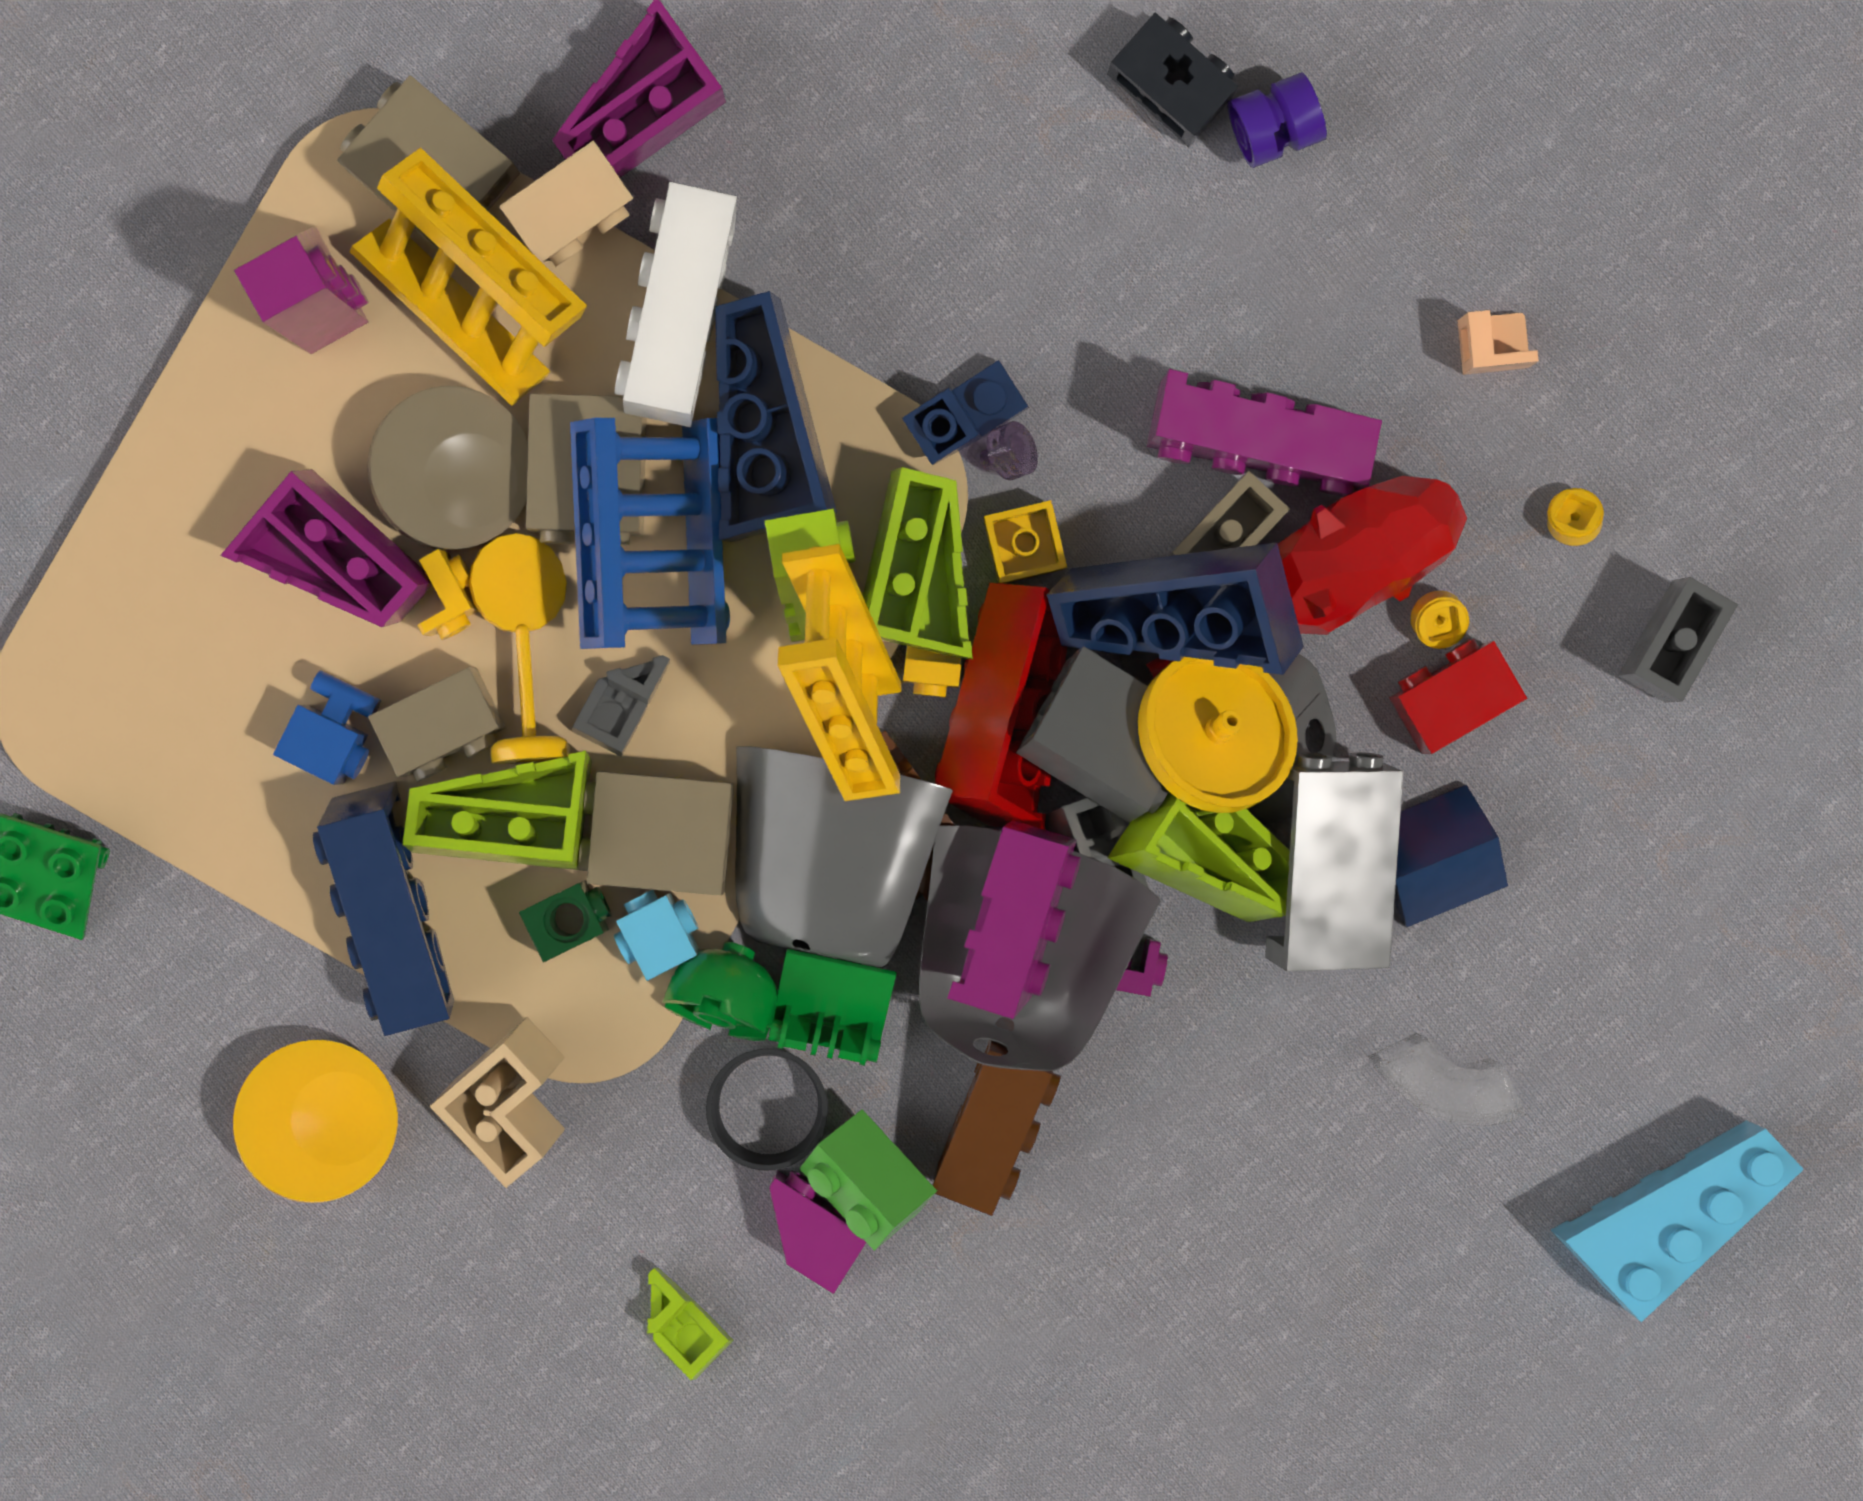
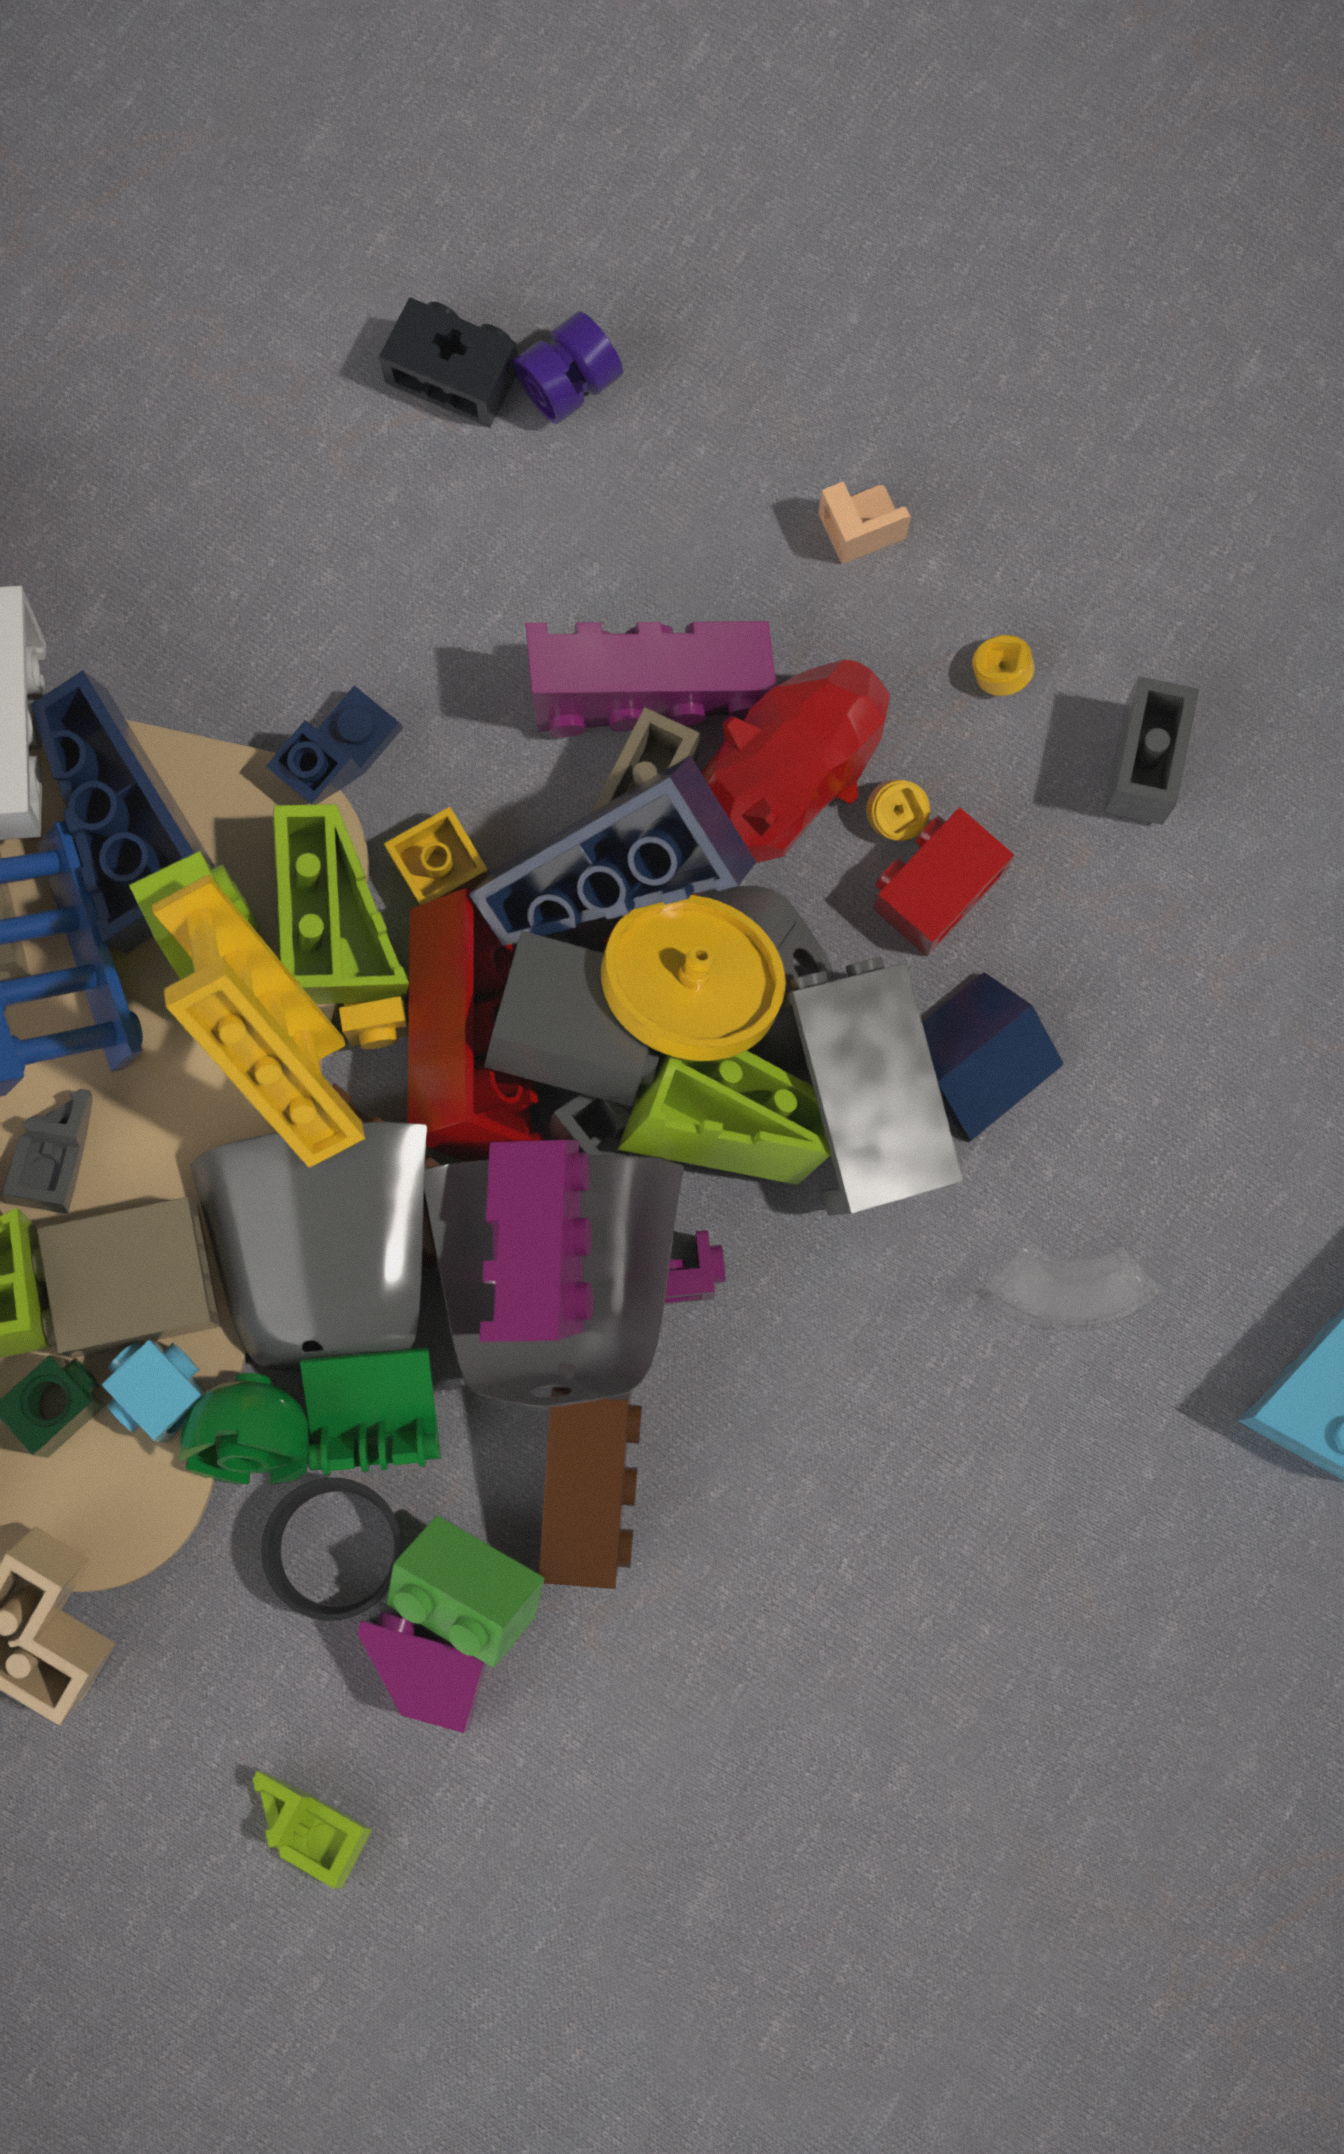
camera: 20 degrees left, 10 degrees down
(1010, 451) = (393, 773): clear purple tile -> none

